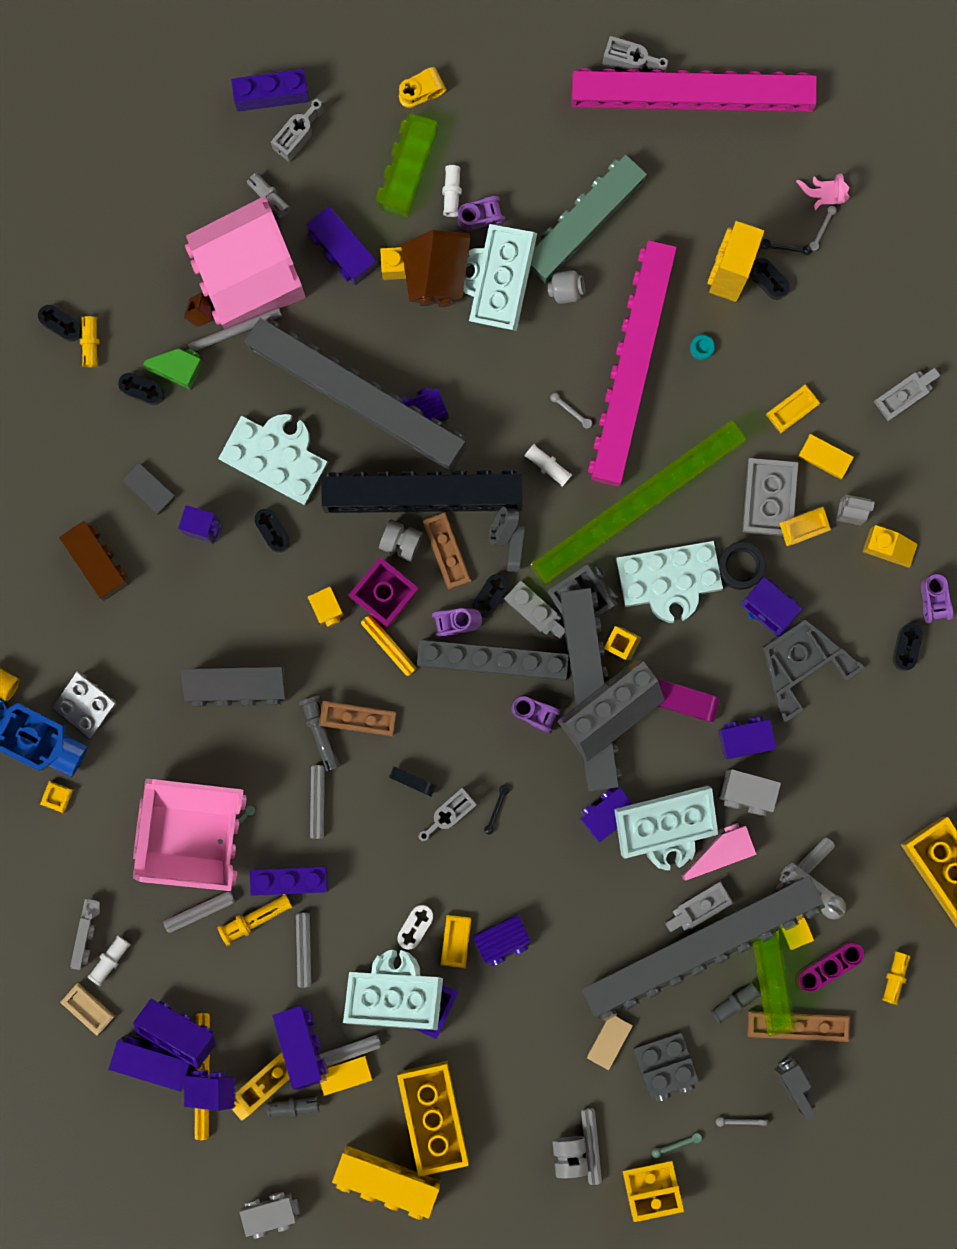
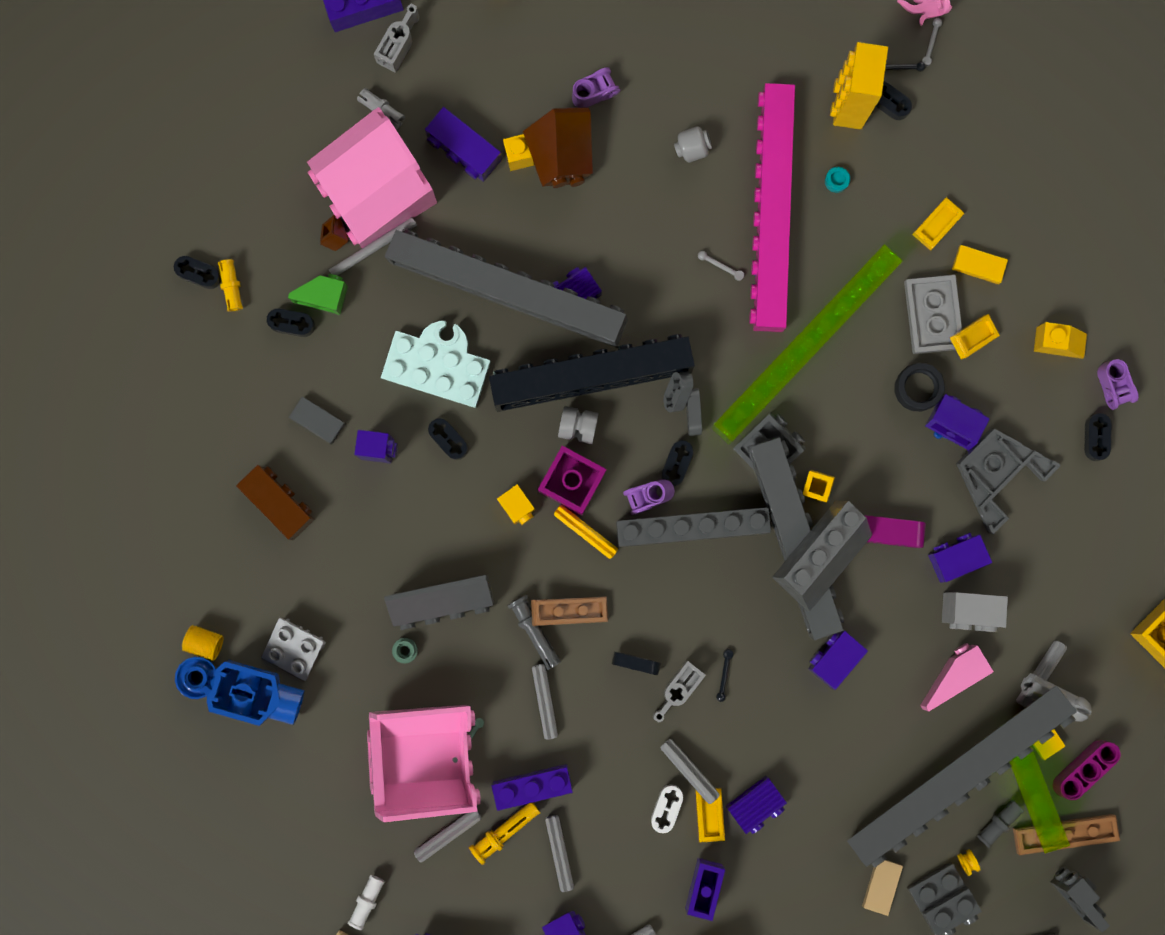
camera: 15 degrees left, 0 degrees up
(56, 797) = (282, 746): yellow tile -> none
(85, 932) = (337, 877): light grey hinge -> none
(183, 727) = (396, 650): none -> sand green plate
(393, 995) = (660, 884): light aqua plate -> none
(407, 166) = (513, 53): clear neon green brick -> none
(444, 895) = (690, 771): none -> light grey axle
(446, 551) = (625, 427): medium nougat tile -> none
(451, 190) = (561, 71): white pin -> none
(500, 276) = (626, 145): light aqua plate -> none
(534, 610) = (724, 469): light grey hinge -> none
(536, 714) = (749, 572): medium lavender piece -> none
(548, 465) = (709, 323): white pin -> none
(586, 217) = (698, 74): sand green brick -> none
(667, 826) = (899, 660): light aqua plate -> none
(670, 578) = (851, 413): light aqua plate -> none
(697, 1034) = (968, 862): none -> yellow bush
(700, 907) = (946, 735): light grey hinge -> none
(854, 509) = (1021, 310): light grey piece -> none
(896, 978) = (1154, 768): yellow pin -> none
(906, 393) = (1046, 188): light grey hinge -> none

